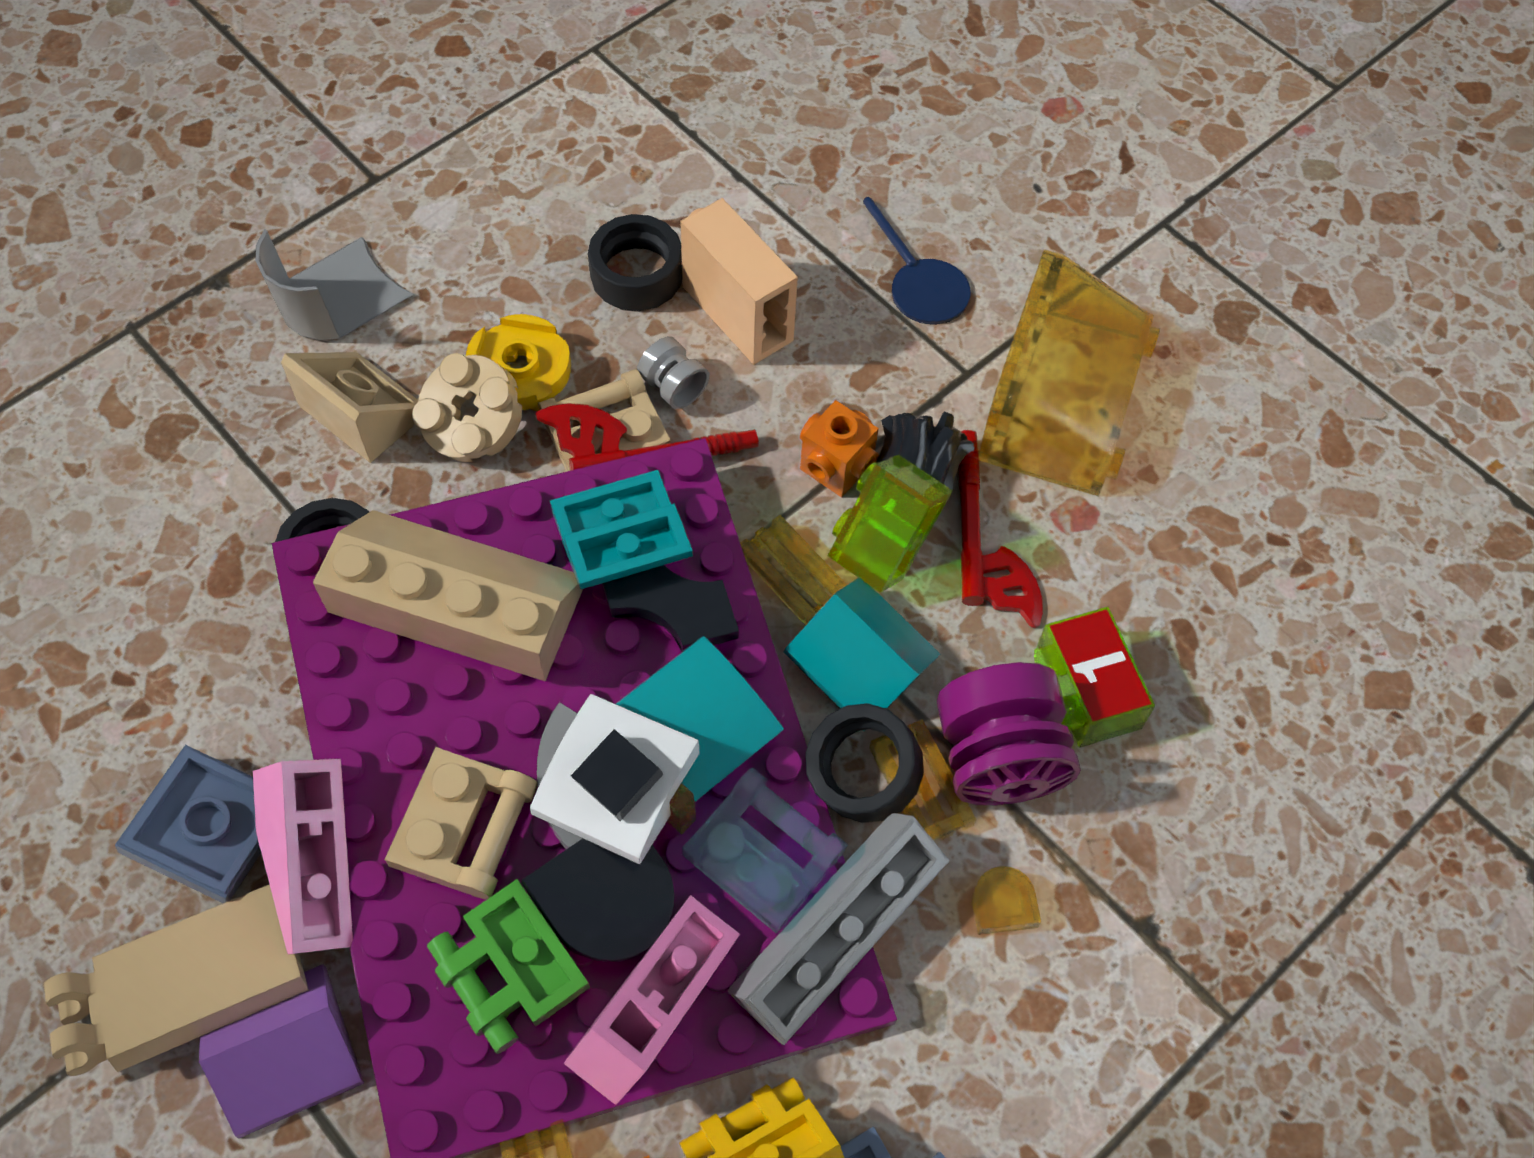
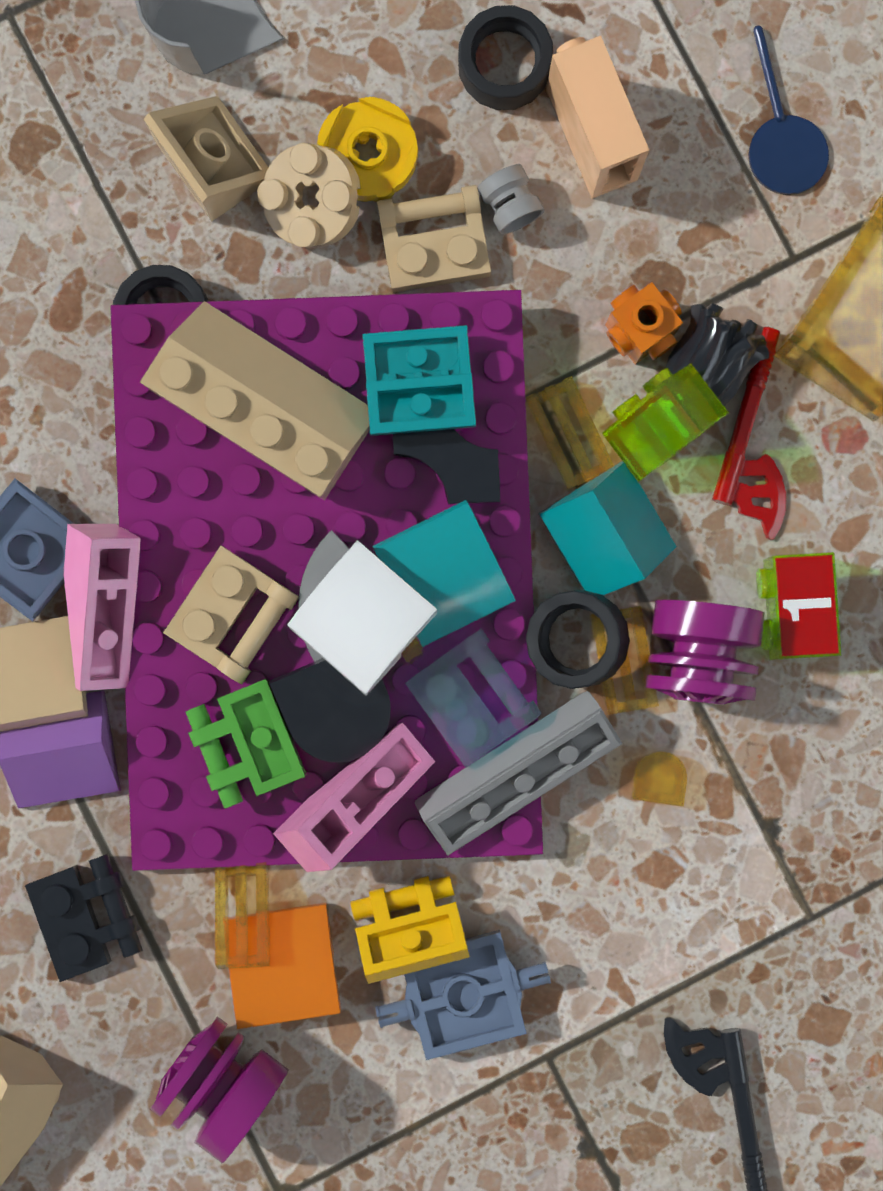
camera: 15 degrees right, 25 degrees up
(613, 430) = (408, 282): red piece -> none
(617, 775) = (362, 625): black tile -> none

